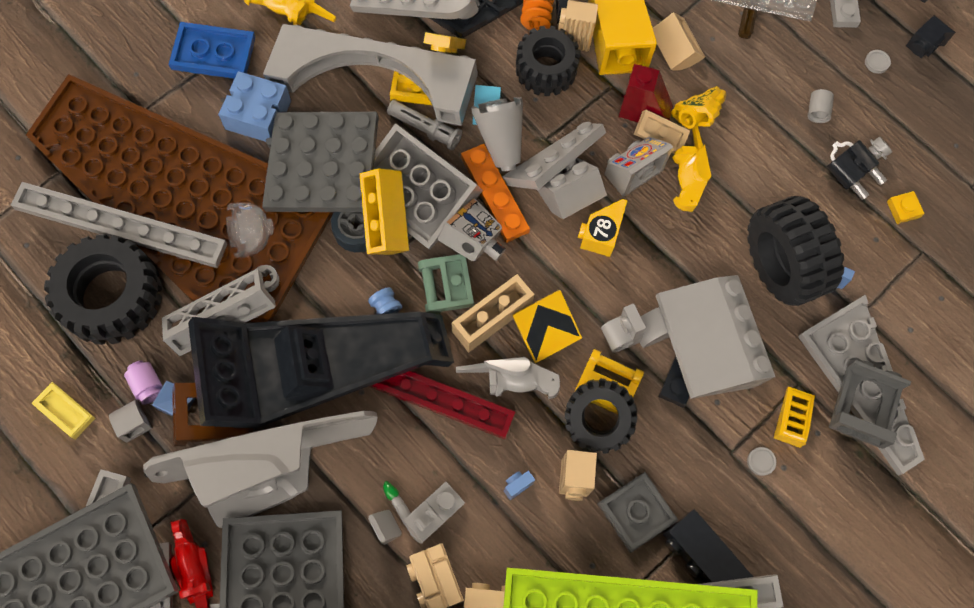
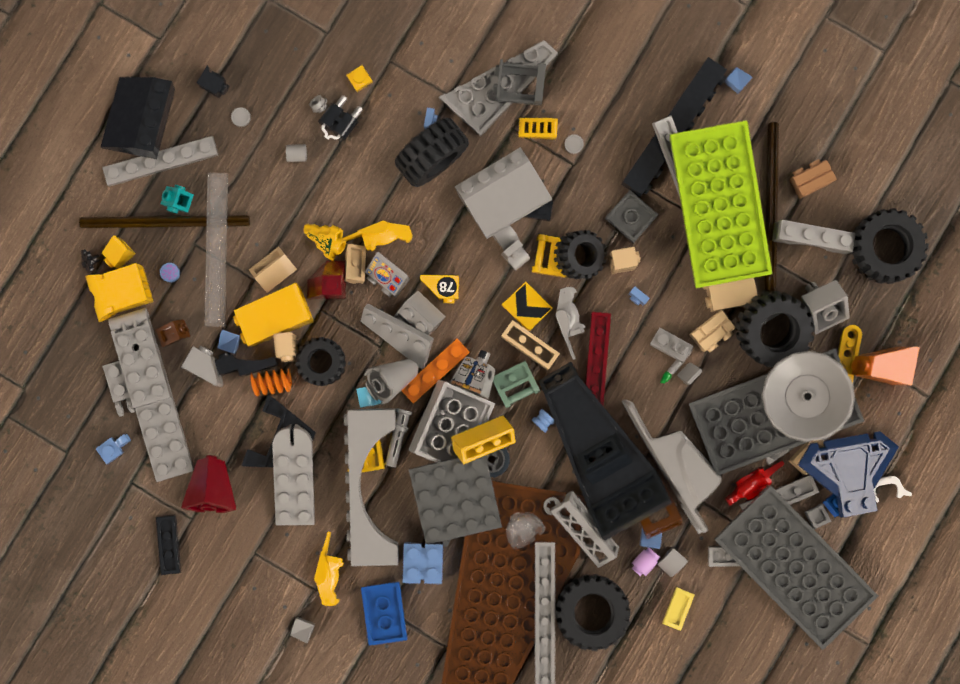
camera: 100 degrees left, 15 degrees up
(444, 43) = (334, 439): yellow plate -> none

